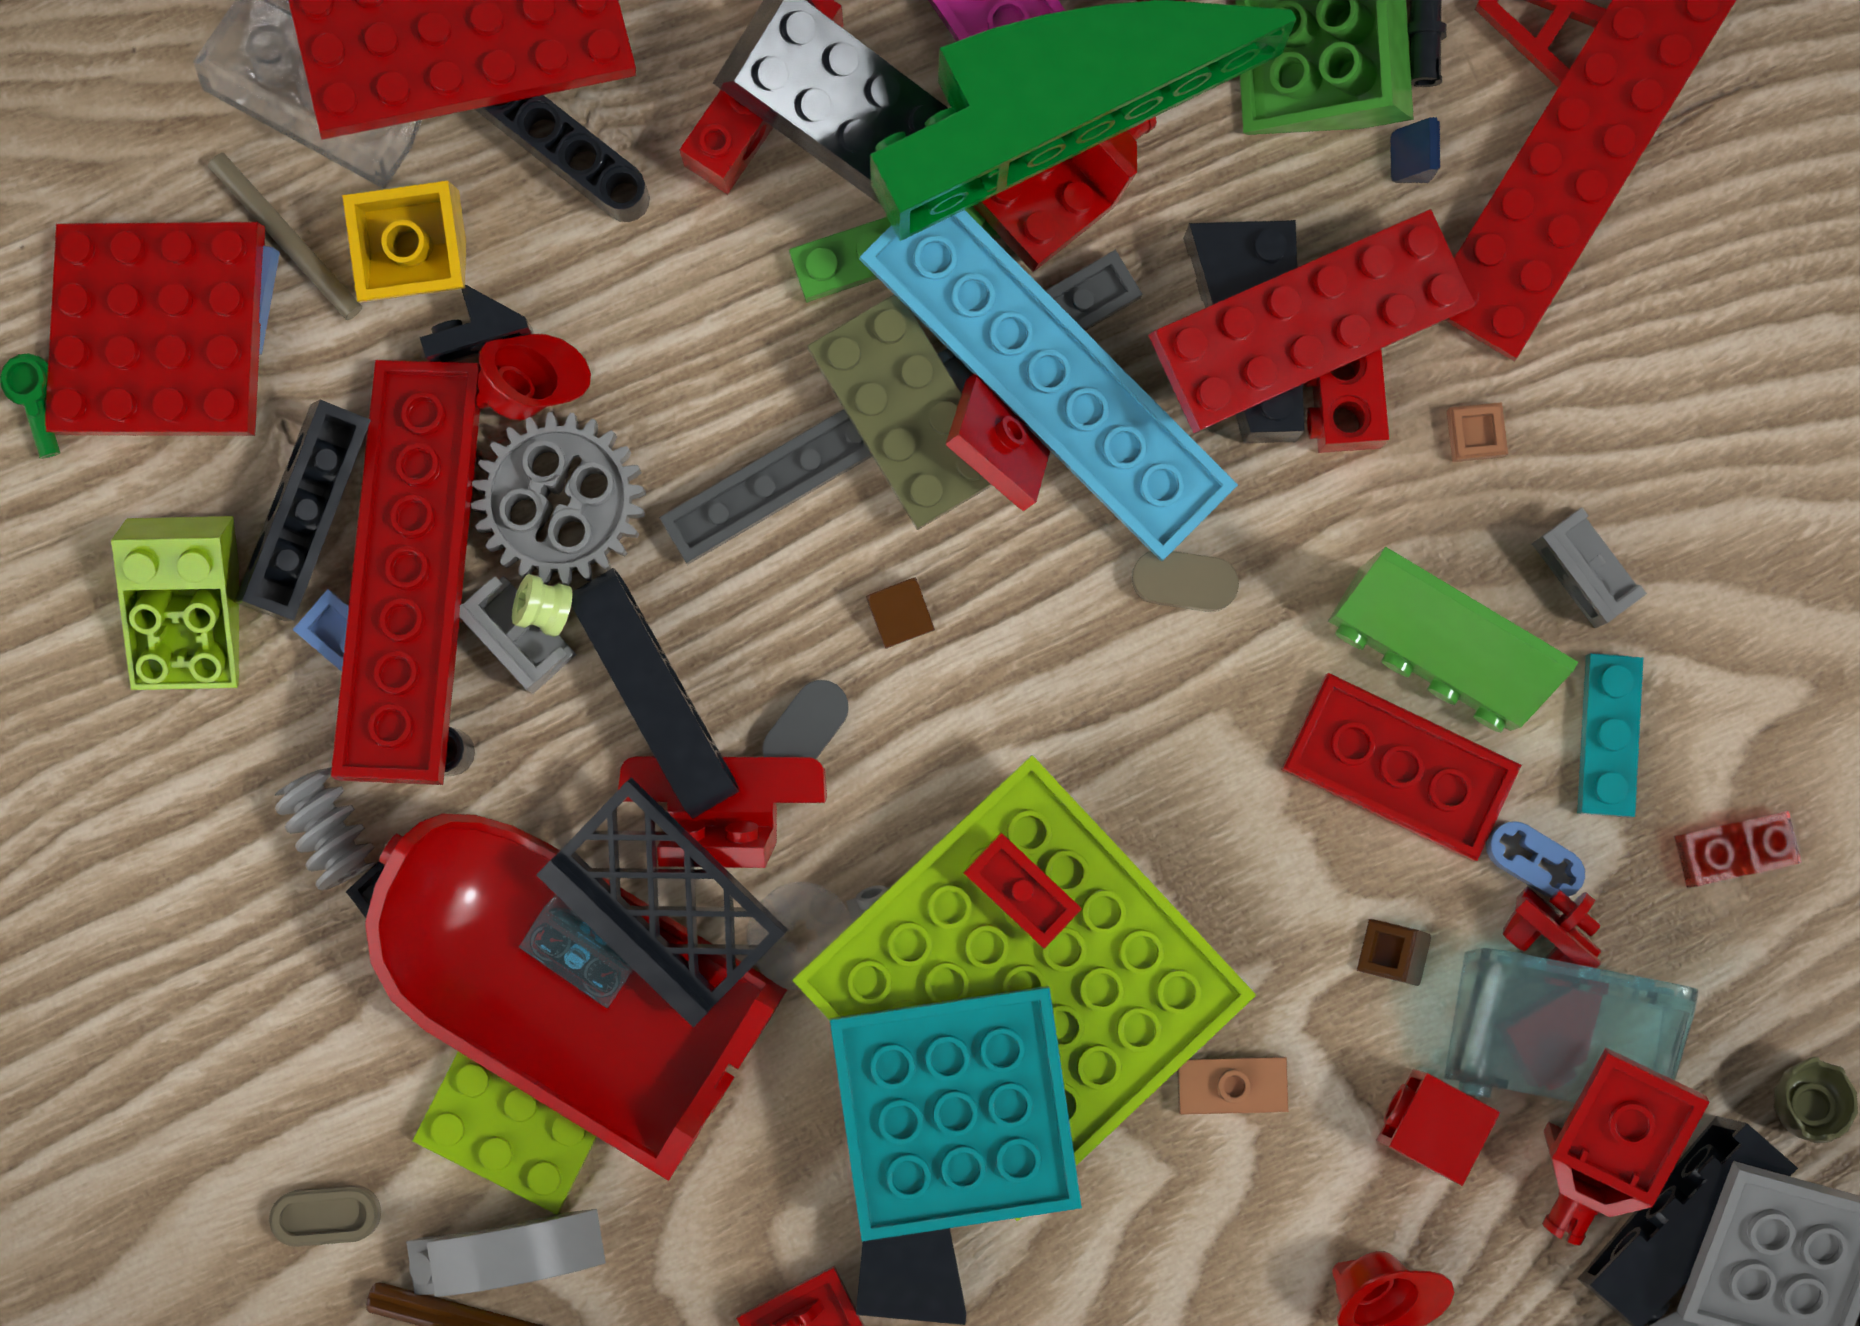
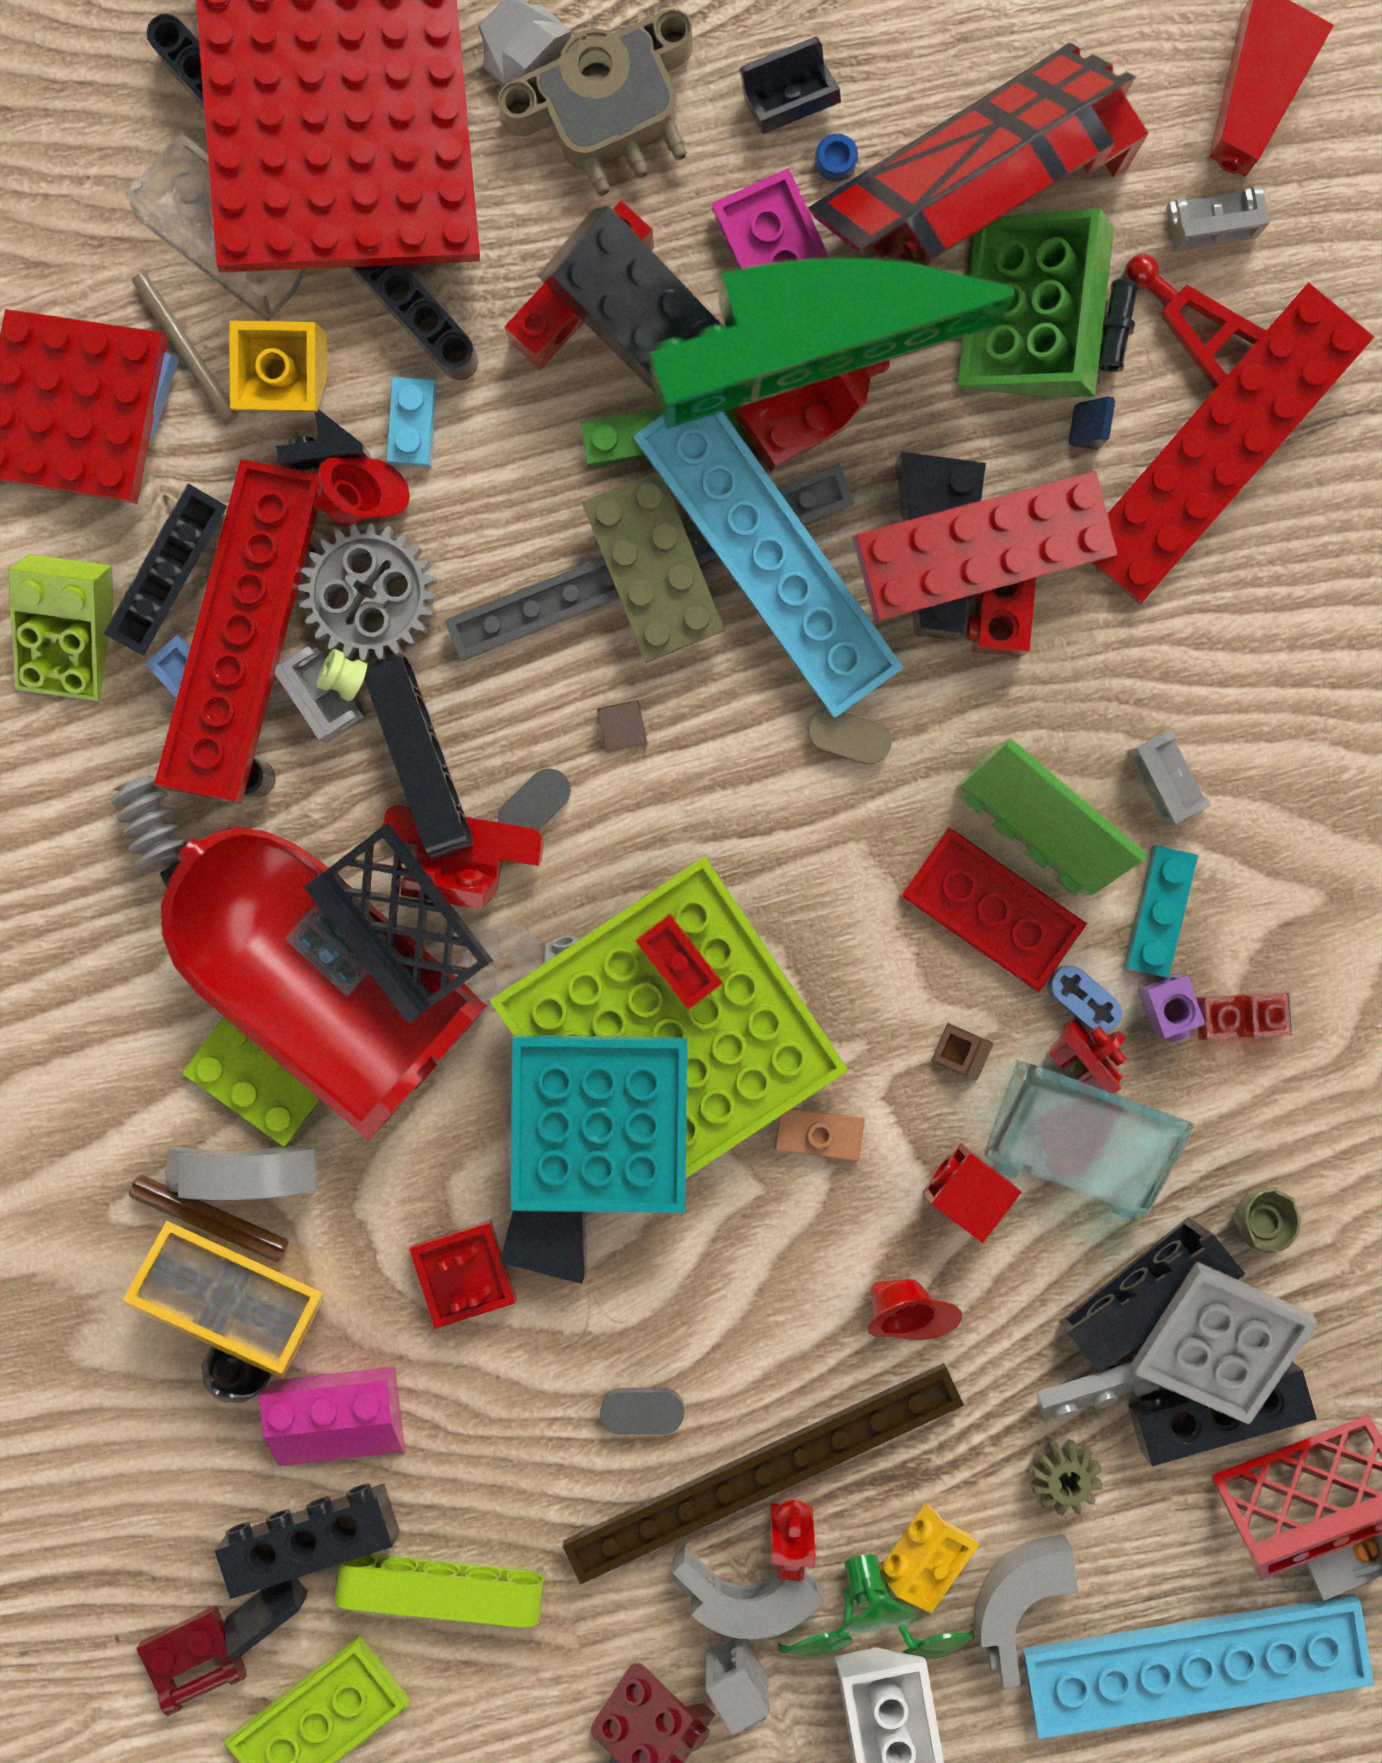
camera: 10 degrees right, 5 degrees up
(325, 1216) = (108, 1118): dark tan tile -> none
(579, 282) = (411, 422): none -> medium azure plate
(997, 444) = (718, 605): red plate -> none
(1477, 432) = (1100, 656): nougat tile -> none
(1618, 1143) = (1109, 1230): red plate -> none
(1622, 845) = (1155, 997): none -> medium lavender brick

